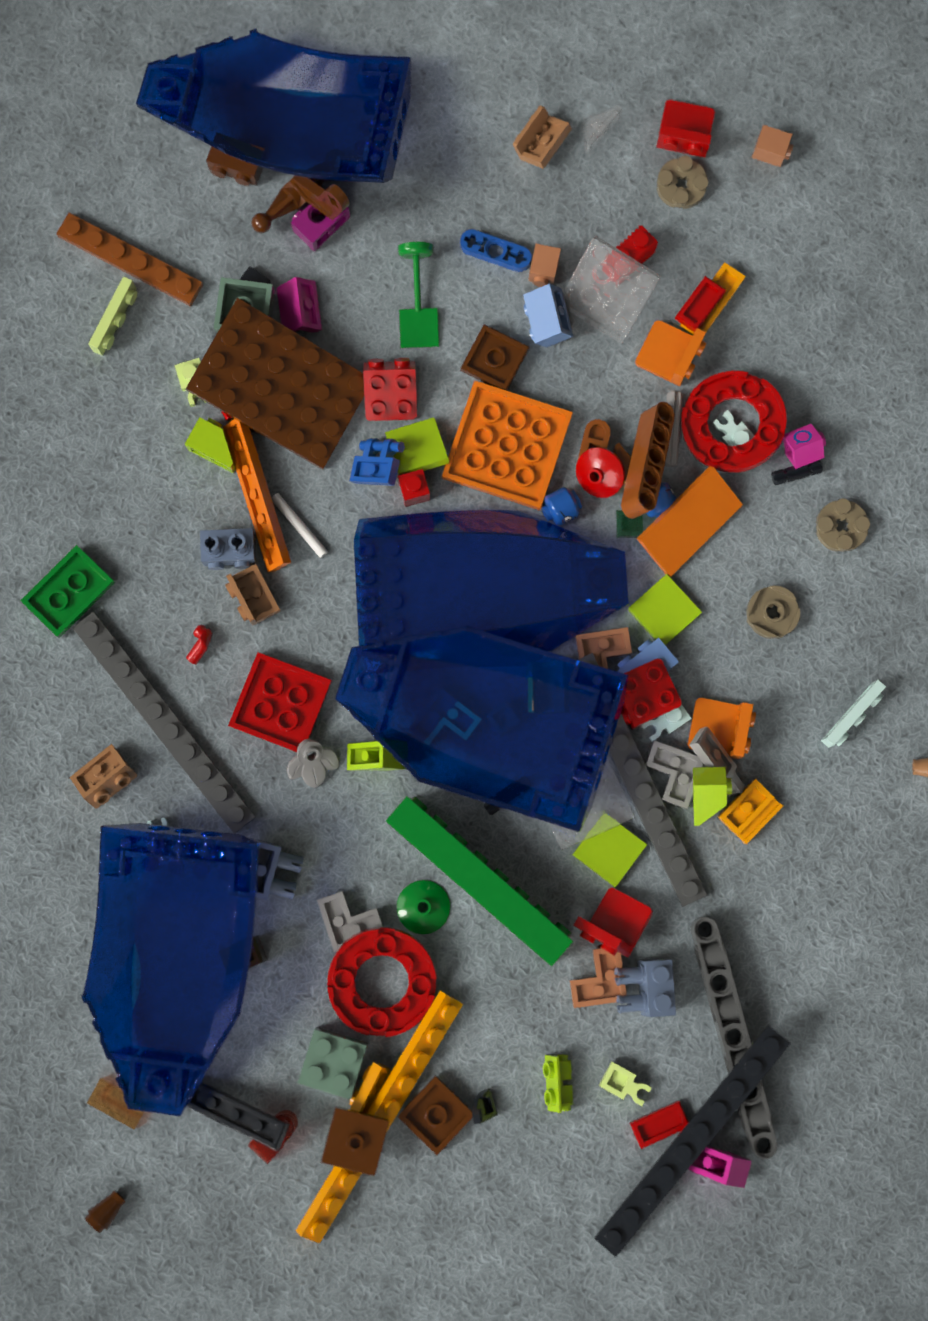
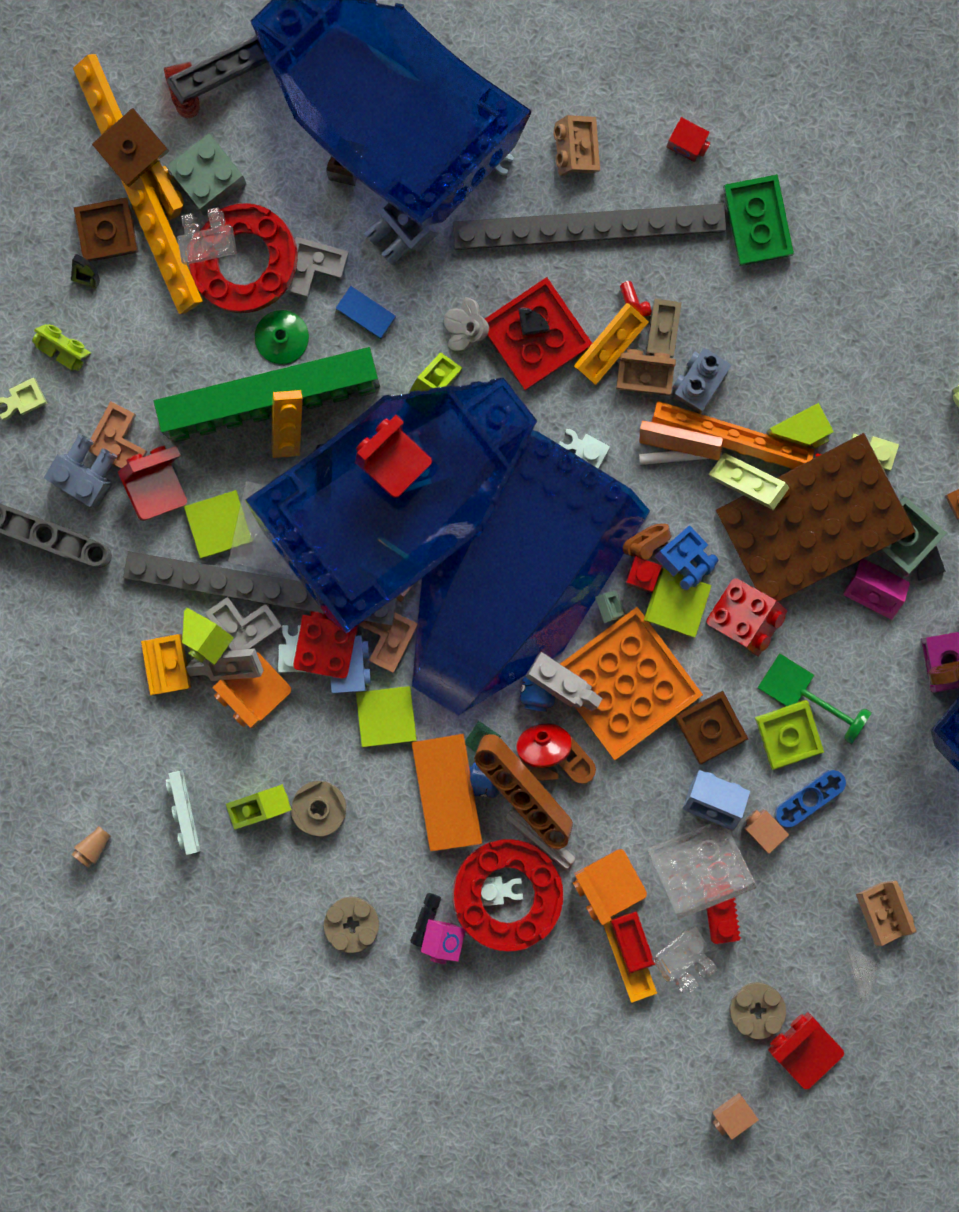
camera: 130 degrees right, 5 degrees up
(38, 689) = (689, 140): none -> red brick
(205, 606) = (663, 327): none -> dark tan plate
(247, 637) = (611, 343): none -> light orange plate
(273, 710) = (532, 322): none -> black tile
(284, 454) = (749, 481): none -> yellowish green plate
(287, 530) = (681, 440): none -> orange tile
(344, 599) = (587, 449): none -> light aqua plate
(356, 852) = (365, 312): none -> blue tile
(385, 502) = (647, 541): none -> dark orange plate
(391, 1018) = (206, 244): none -> clear plate
(456, 496) = (610, 606): none -> sand green tile
(458, 297) = (789, 735): none -> lime tile
(462, 738) = (392, 457): none -> red bracket
(493, 846) = (286, 423): none -> light orange plate
(543, 489) = (562, 683): none -> light grey hinge
(682, 263) = (680, 954): none -> clear plate
(806, 658) = (258, 807): none -> lime slope

